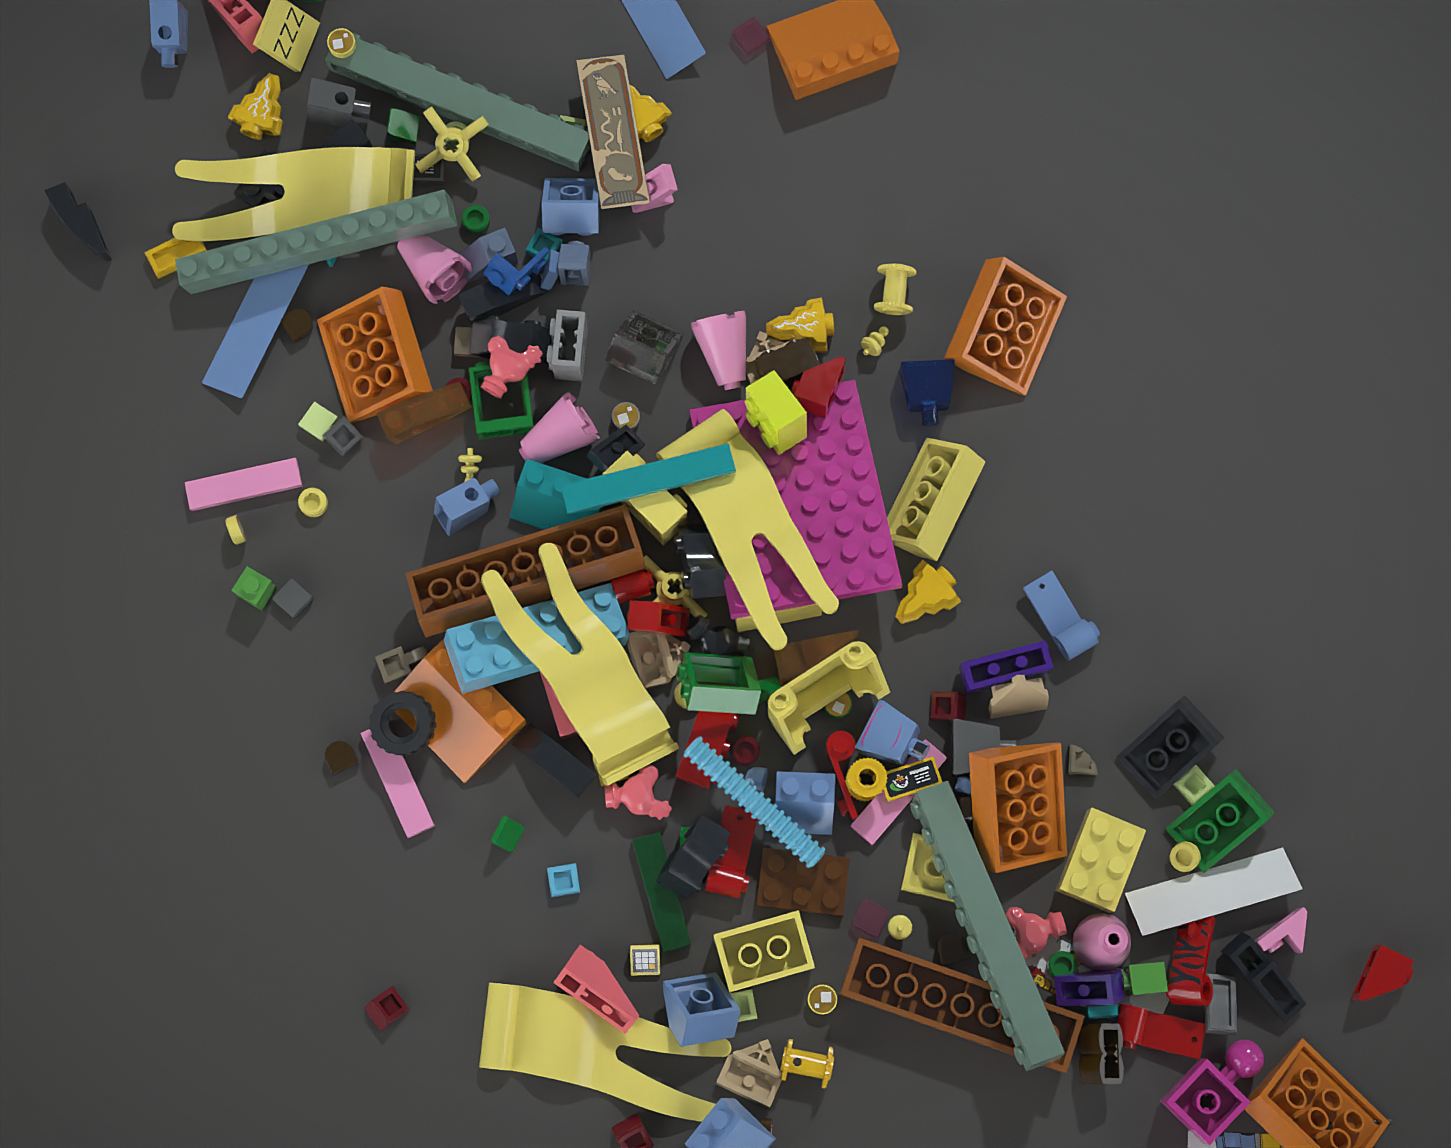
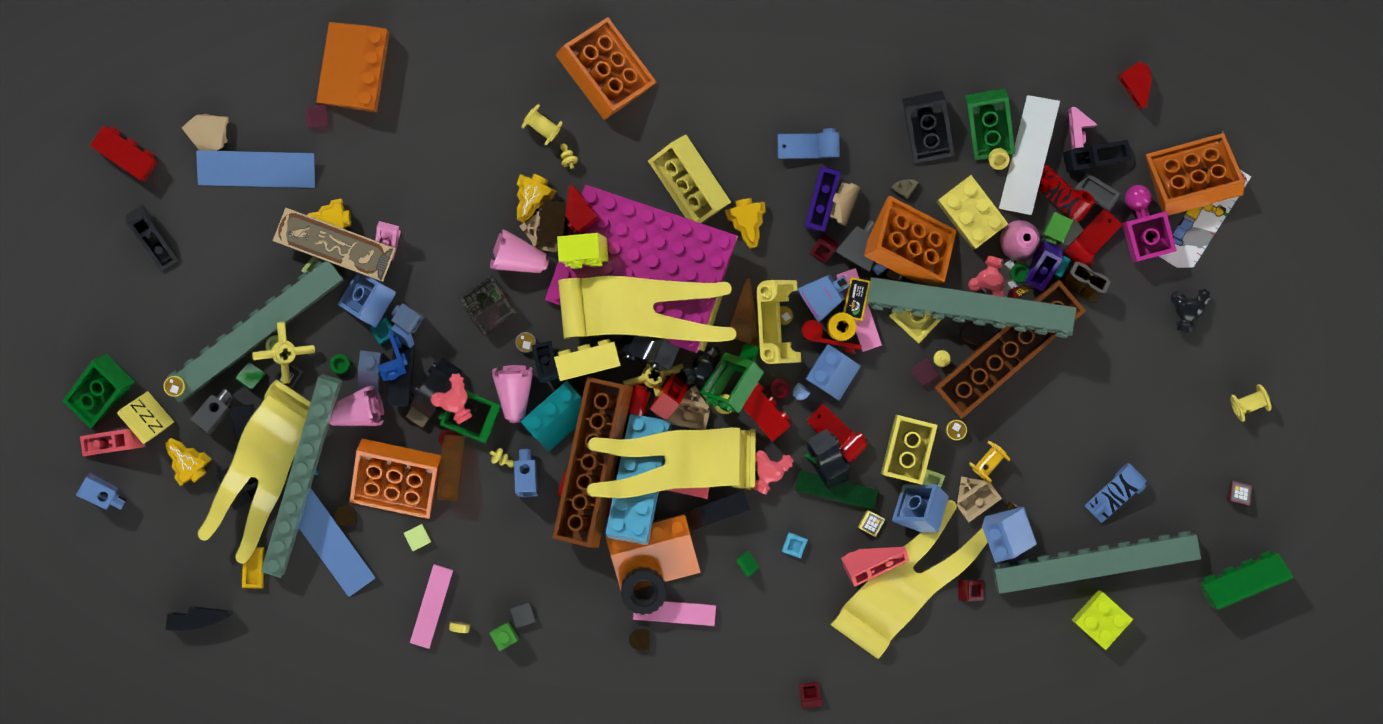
camera: 60 degrees left, 10 degrees up
(313, 502) = (468, 569): light yellow tile -> none
(342, 436) = (436, 527): dark grey tile -> none
(397, 664) = (602, 573): dark tan plate -> none
(569, 345) = (462, 353): light grey brick -> none
(648, 479) = (580, 354): teal tile -> none
(754, 802) = (816, 403): medium azure piece -> none
(793, 886) = (879, 400): reddish brown plate -> none
(927, 387) = (617, 141): clear blue torso -> none
(1194, 785) = (959, 126): yellowish green tile -> none

